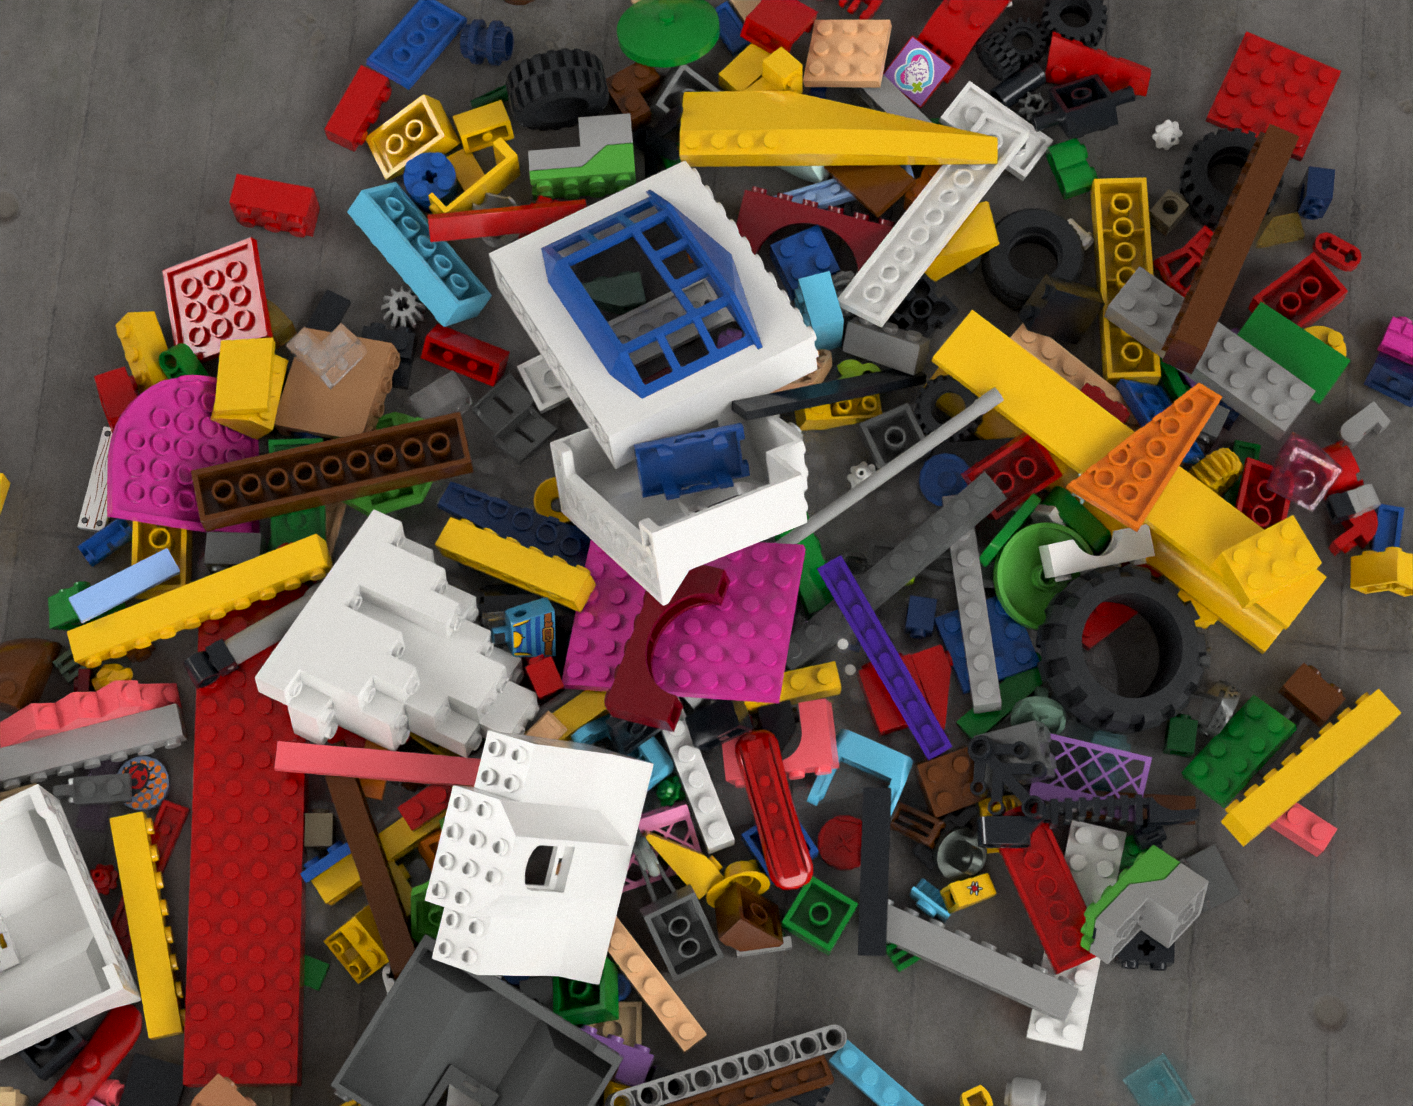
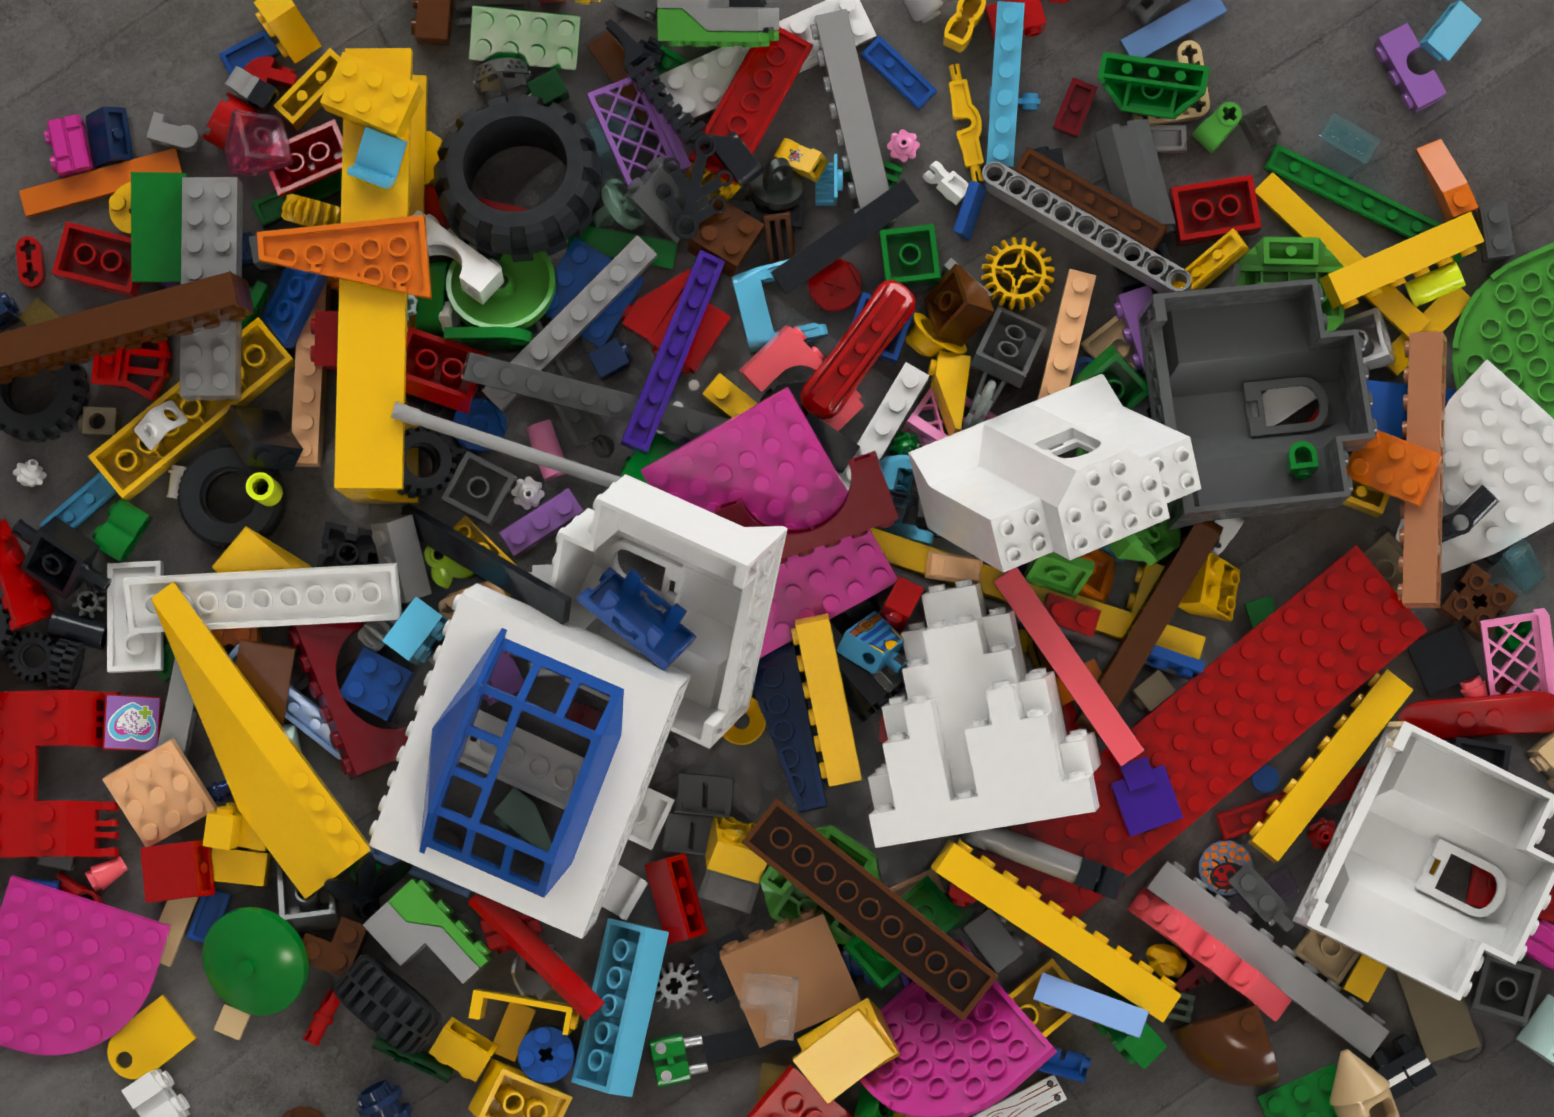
camera: 125 degrees left, 10 degrees up
(180, 869) = (1265, 779): none -> blue tile
(240, 748) = (1144, 797): none -> dark purple piece
(351, 265) = (670, 1059): none -> green piece
(394, 1078) = (1301, 460): none -> green plate
(476, 418) = (728, 854): none -> yellow slope
(502, 324) = (624, 892): none -> white piece
(586, 43) = (322, 1018): none -> red pin
(719, 1010) = (1006, 270): none -> yellow gear
(820, 996) = (969, 210): none -> blue tile
(830, 465) = (541, 523): none -> medium lavender brick
(852, 998) = (949, 184): none -> white plate
(885, 516) = (544, 438): none -> bright pink pin
(910, 1060) = (964, 110): none -> yellow piece
(916, 985) = (903, 145): none -> bright pink plant
(981, 1032) = (898, 73): none -> blue tile
(1016, 273) = (256, 482): none -> neon yellow pin
(1113, 151) = (84, 502): none -> dark azure tile
(1130, 236) = (156, 425): none -> white bracket
(1211, 529) = (378, 158): none -> medium azure piece
(1318, 532) = (305, 95): none -> yellow brick
(1363, 347) = (94, 184): none -> orange tile

